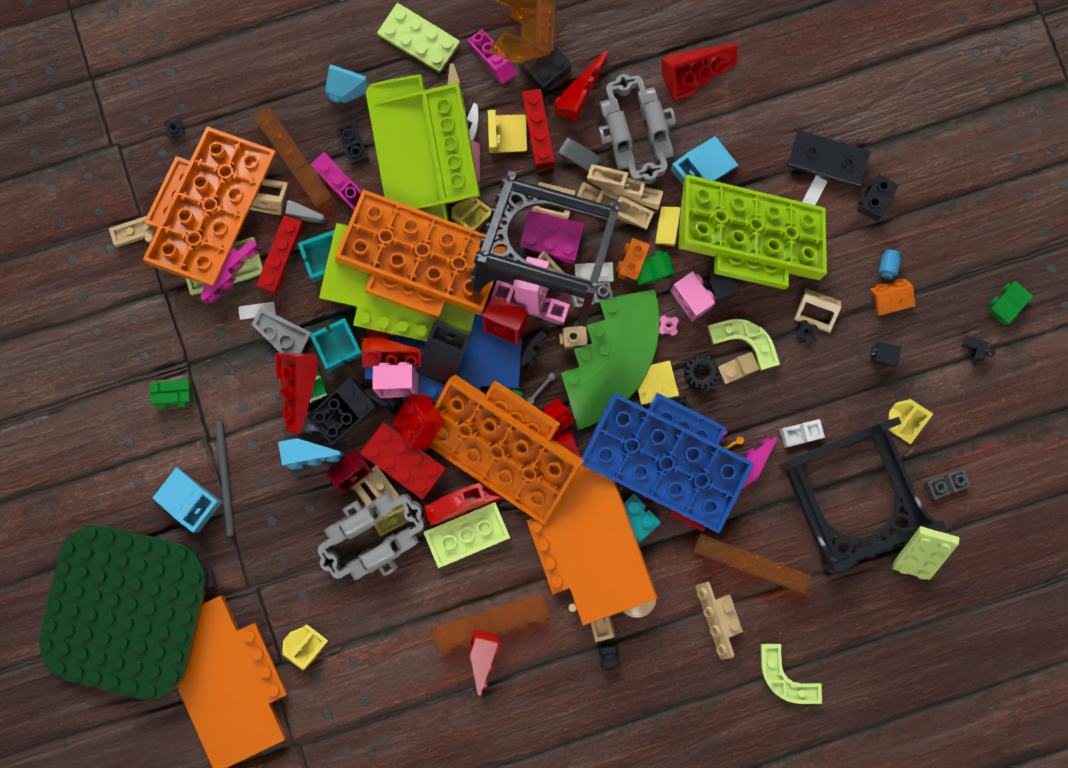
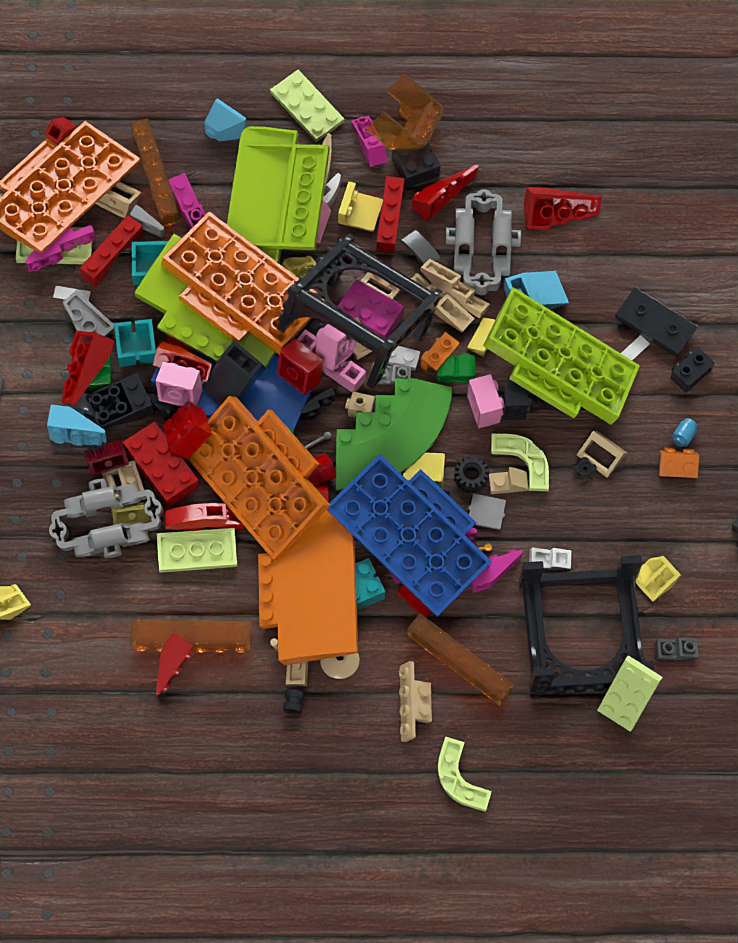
camera: 15 degrees right, 15 degrees down
(178, 132) = (50, 111): black plate -> none
(185, 144) = (59, 129): none -> red brick
(351, 142) = (213, 175): black slope -> none
(668, 330) = (448, 425): bright pink plate -> none
(726, 404) = (487, 511): none -> light grey piece
(885, 354) = (653, 511): black brick -> none

